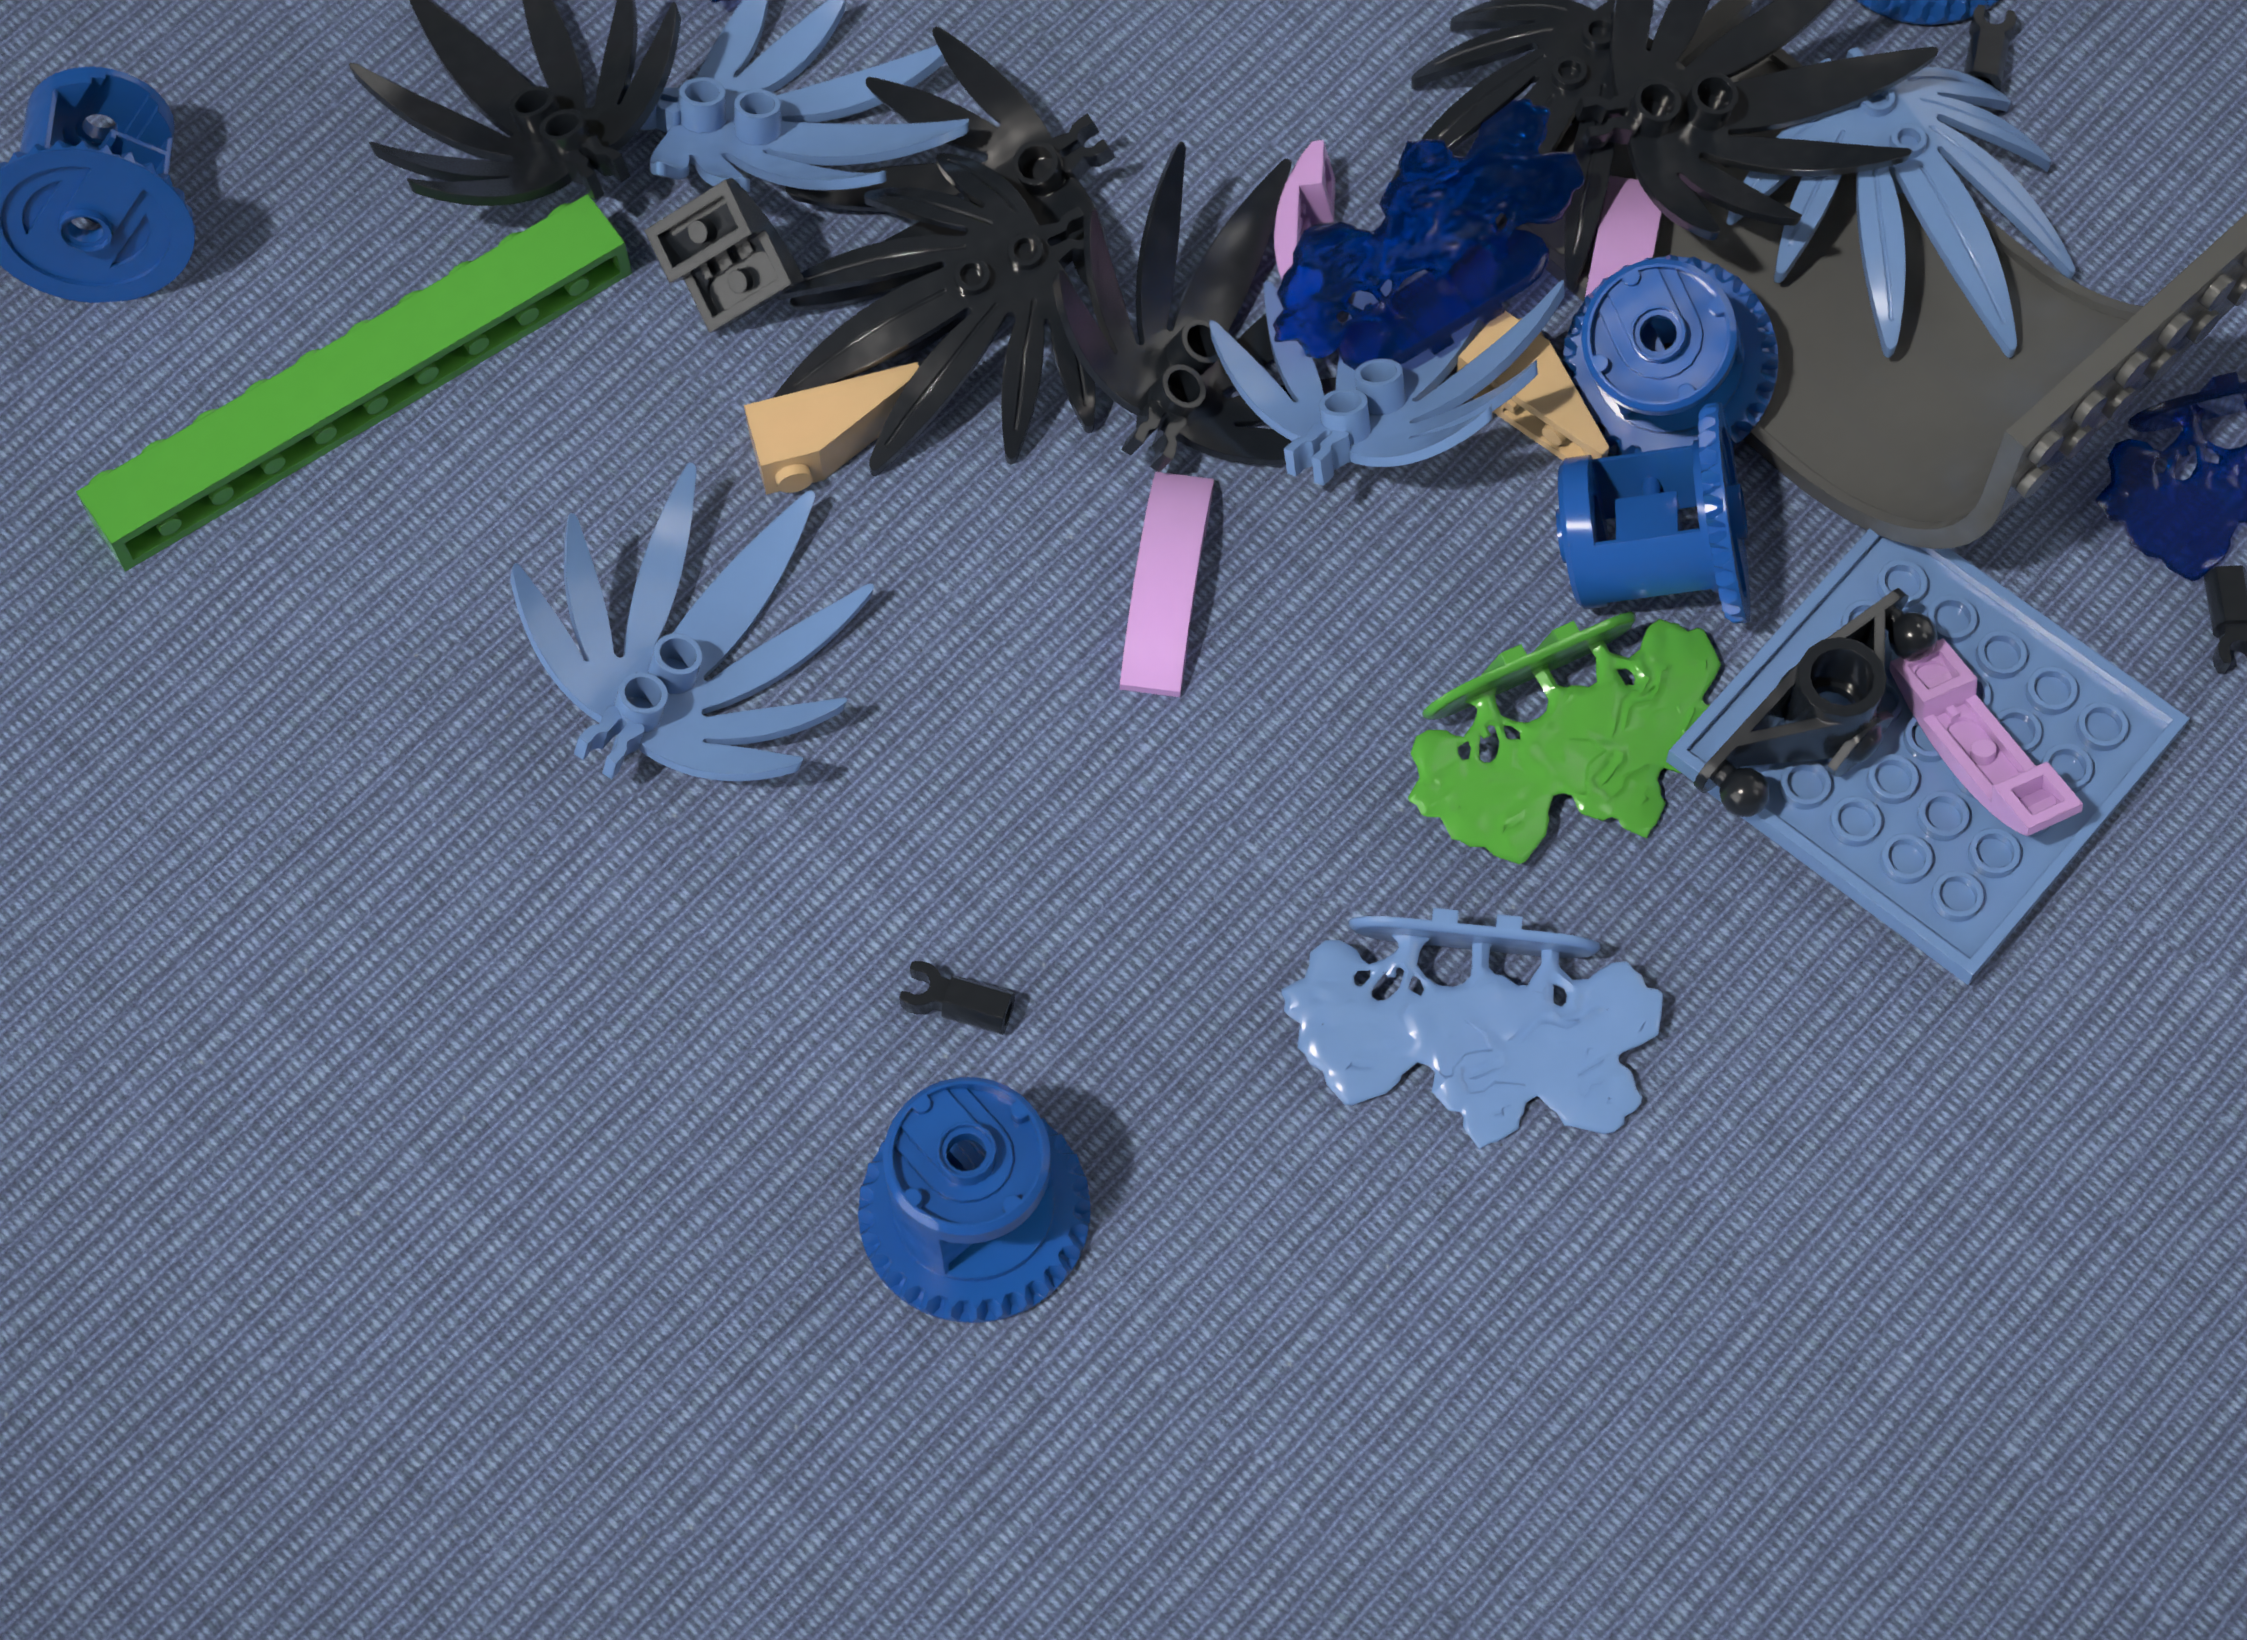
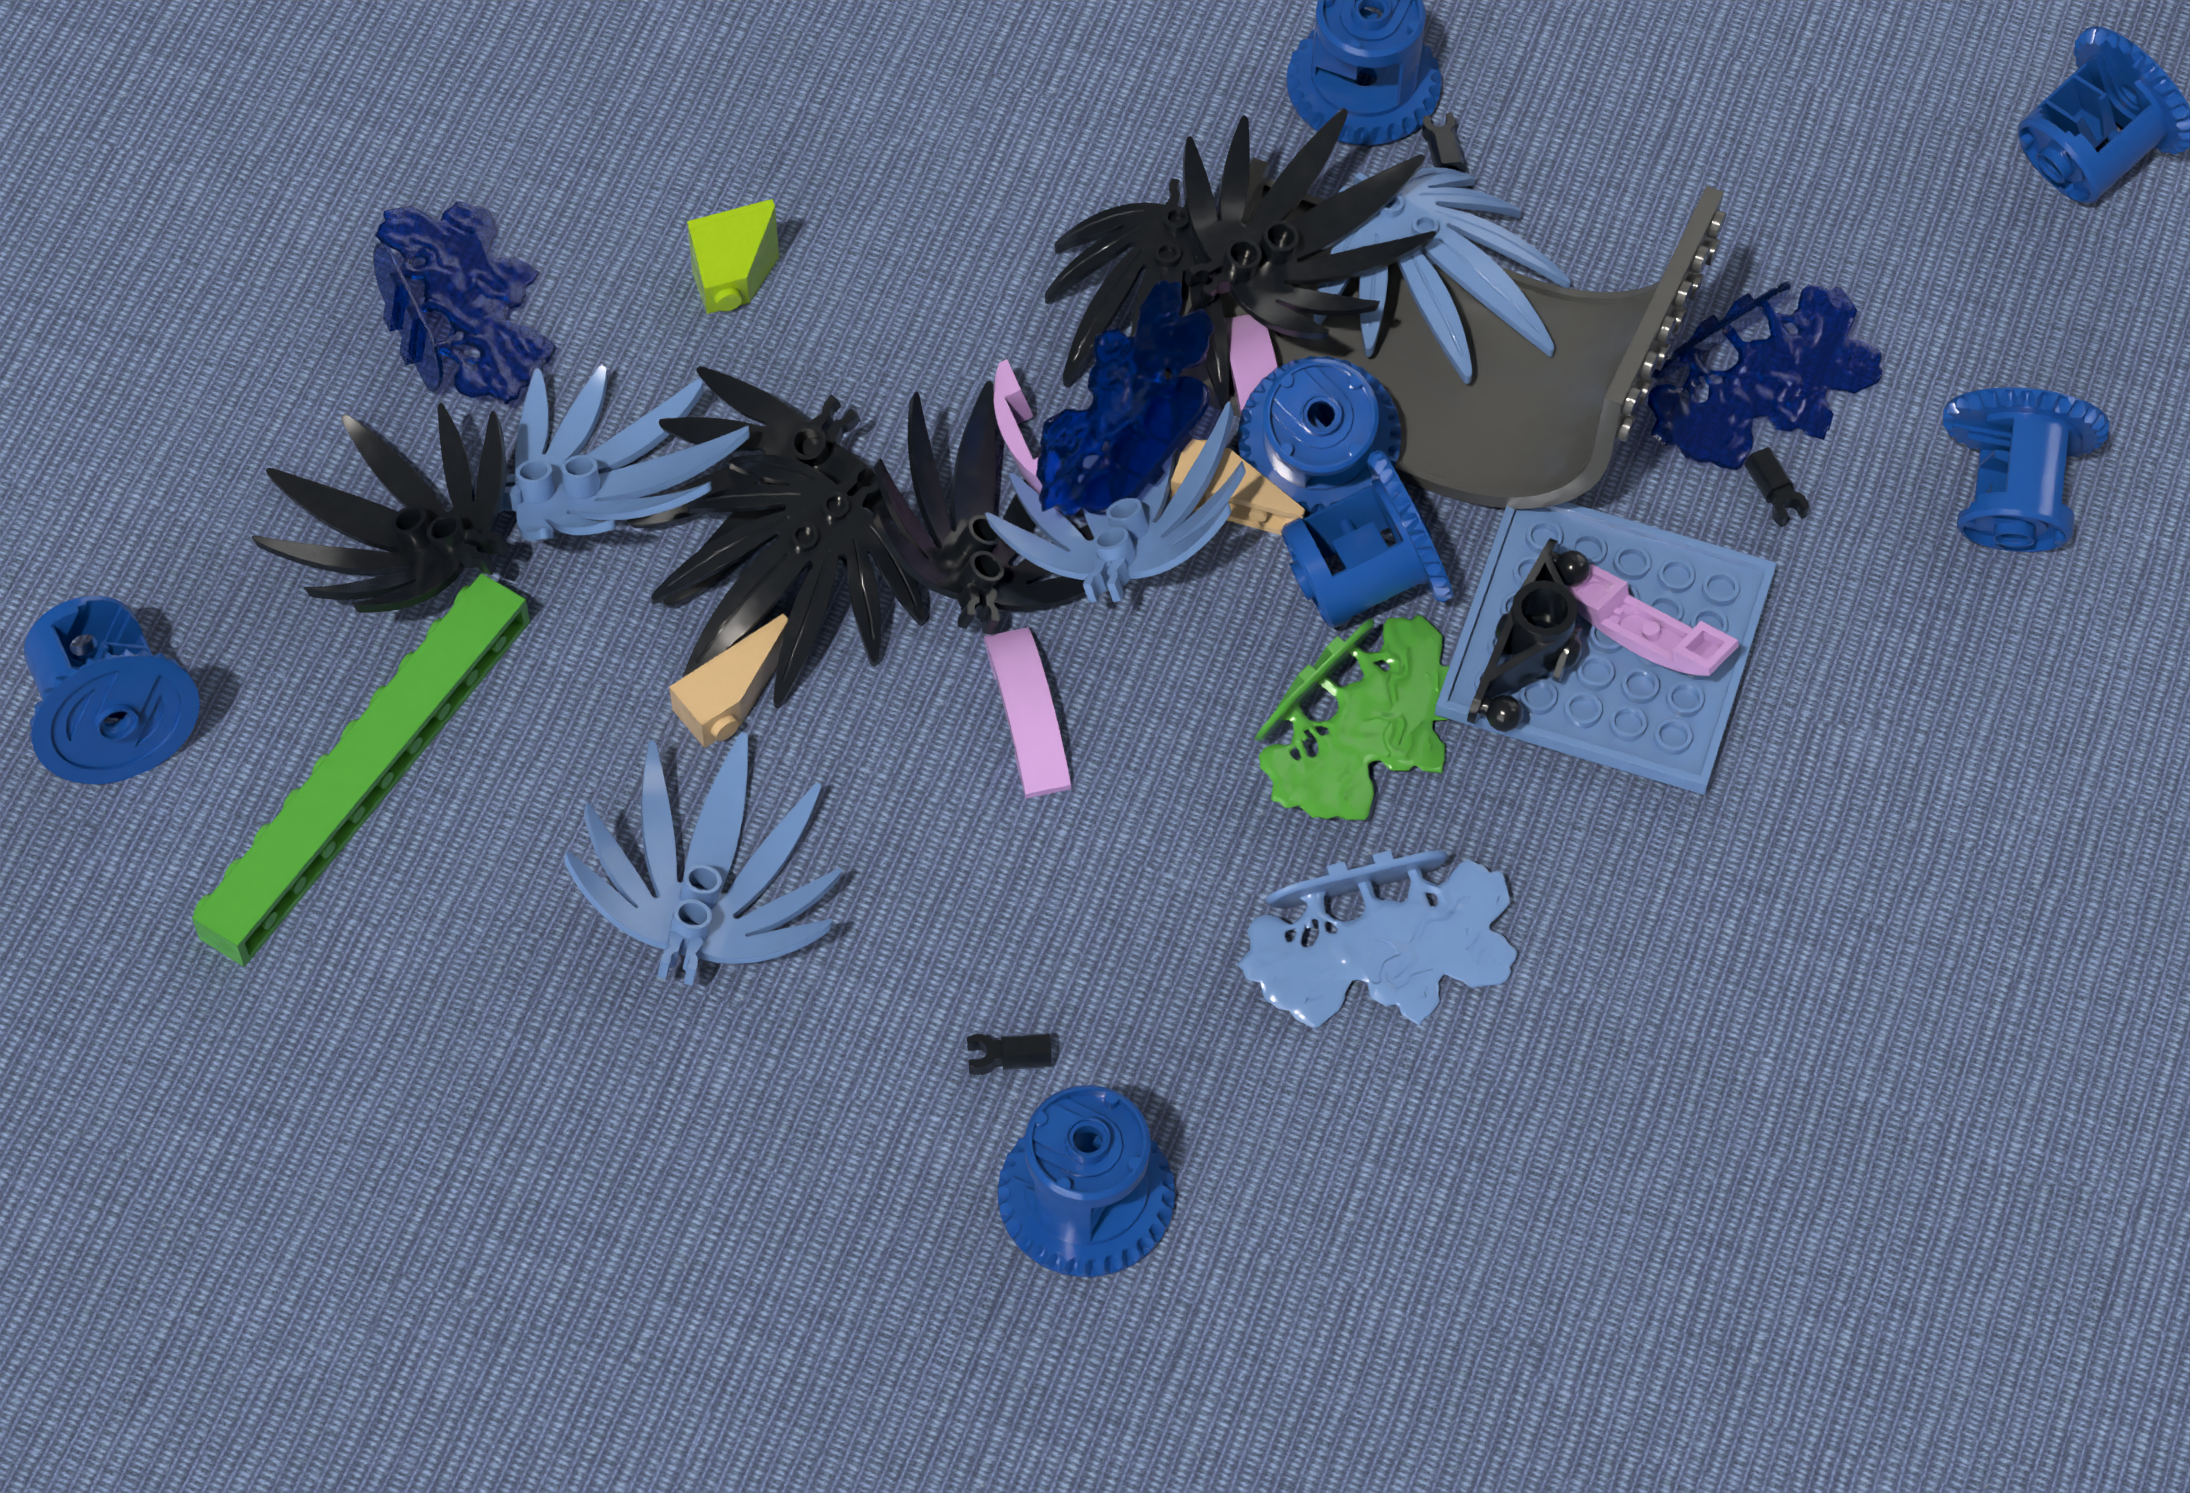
camera: 25 degrees left, 5 degrees down
(724, 254) = (608, 582): black slope -> none

